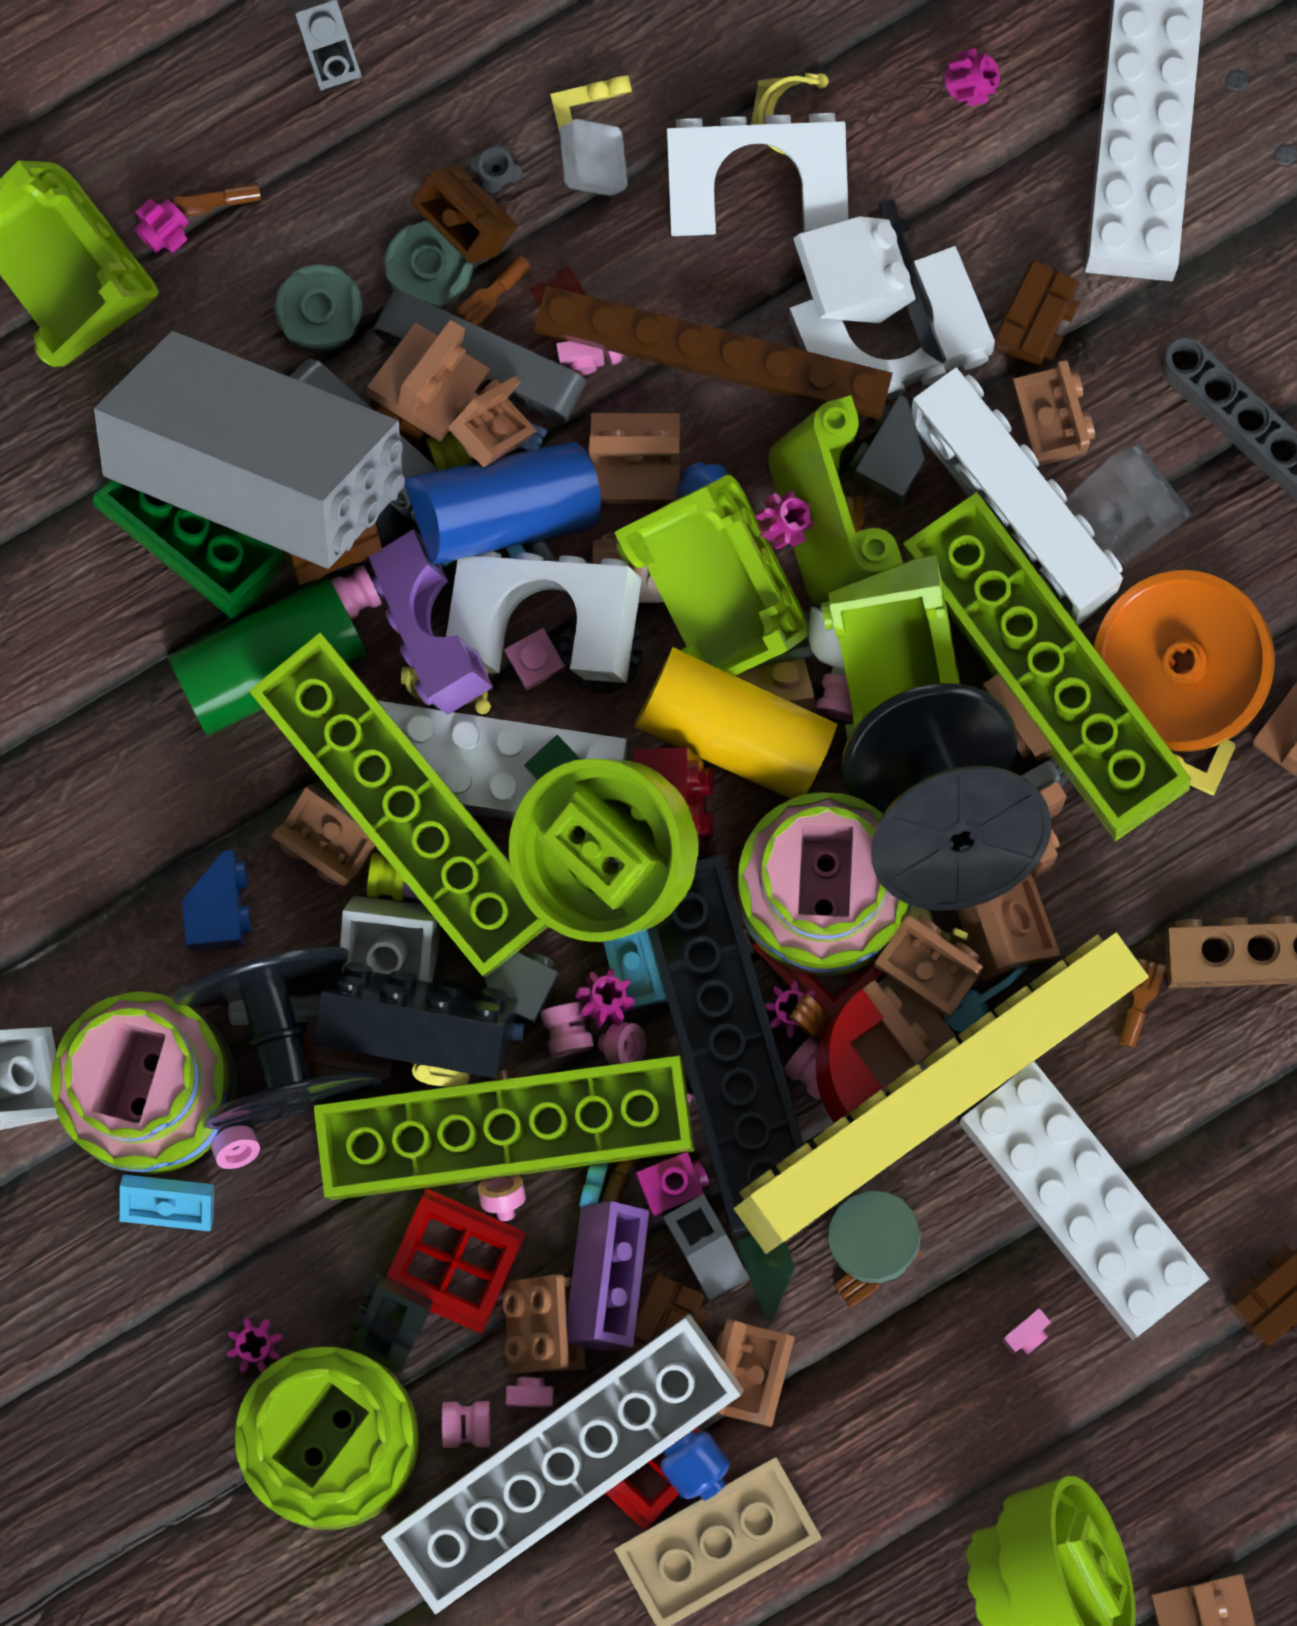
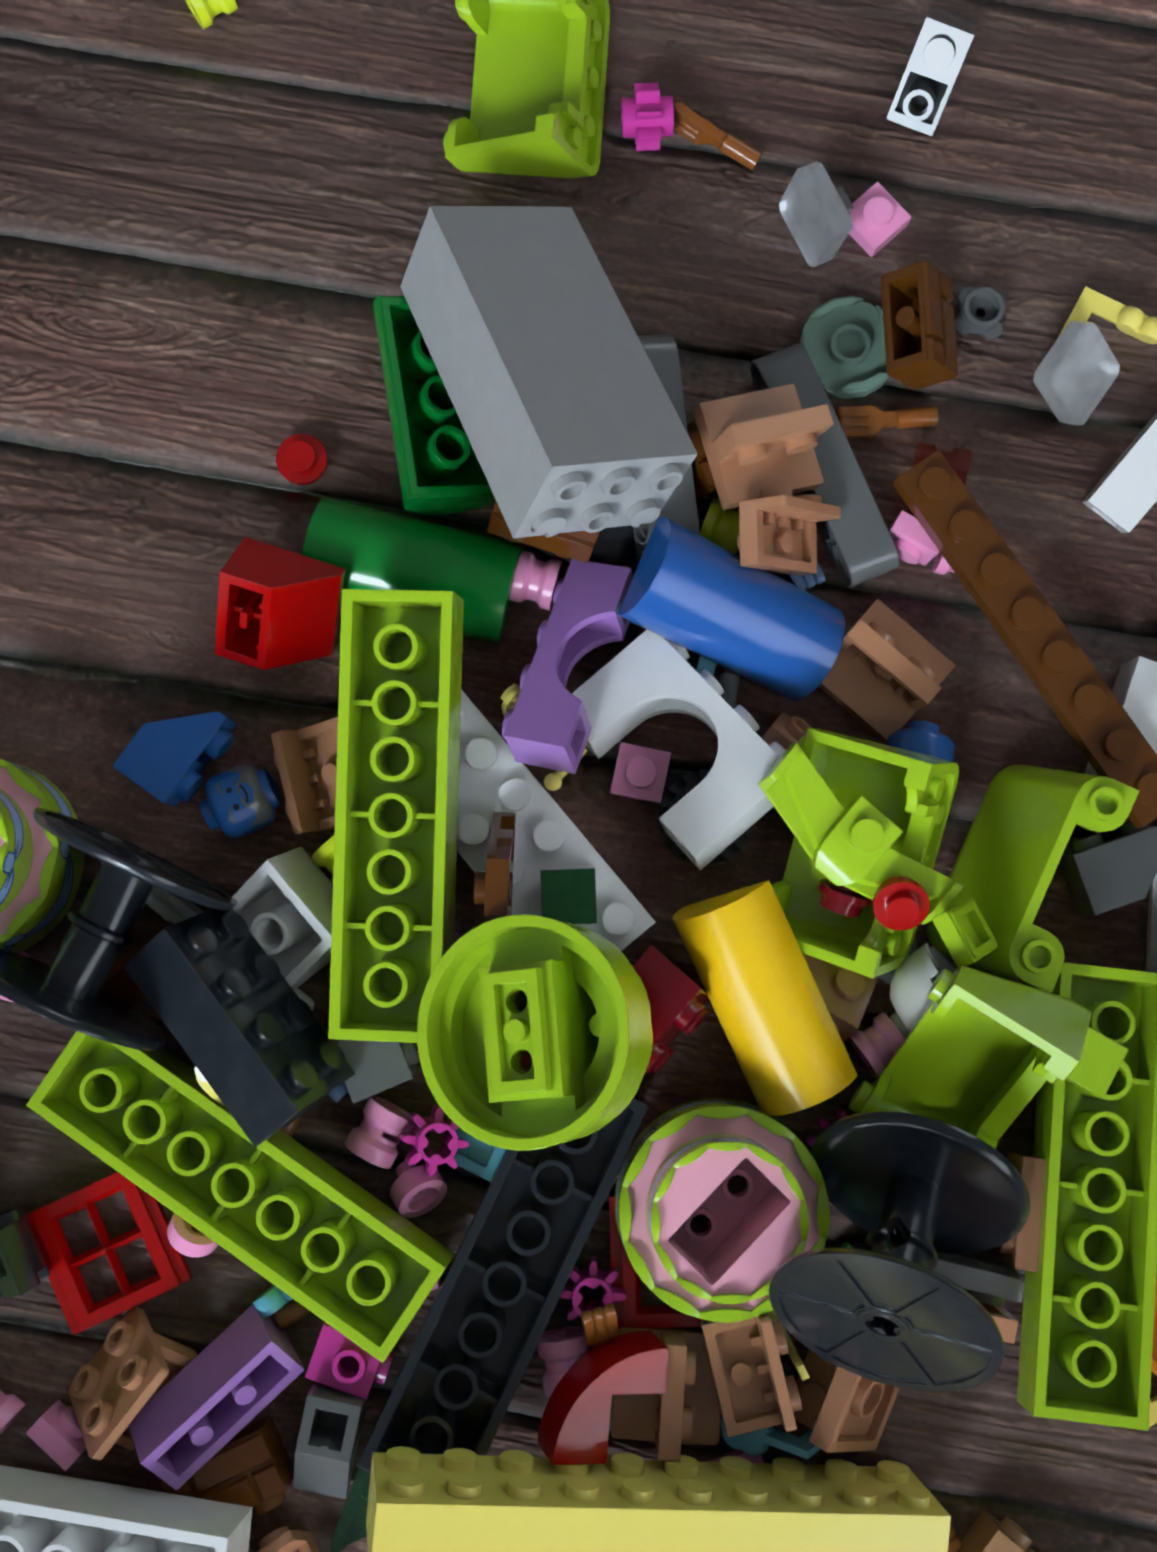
camera: 35 degrees right, 5 degrees up
(128, 646) = (301, 459): none -> red plate
(205, 750) = (276, 606): none -> red slope
(287, 900) = (240, 800): none -> blue head
(318, 308) = (721, 305): sand green tile -> none
(332, 196) = (816, 213): none -> clear piece
(371, 165) = (877, 219): none -> bright pink plate
(501, 788) = (495, 884): none -> reddish brown wing
(704, 577) = (846, 843): none -> lime plate
(730, 619) = (841, 899): none -> dark red plate
(765, 589) = (901, 903): none -> red plate
(784, 520) = (971, 847): dark pink gear -> none
(819, 572) = (965, 932): none -> lime tile
(967, 587) = (1097, 1064): none -> lime tile

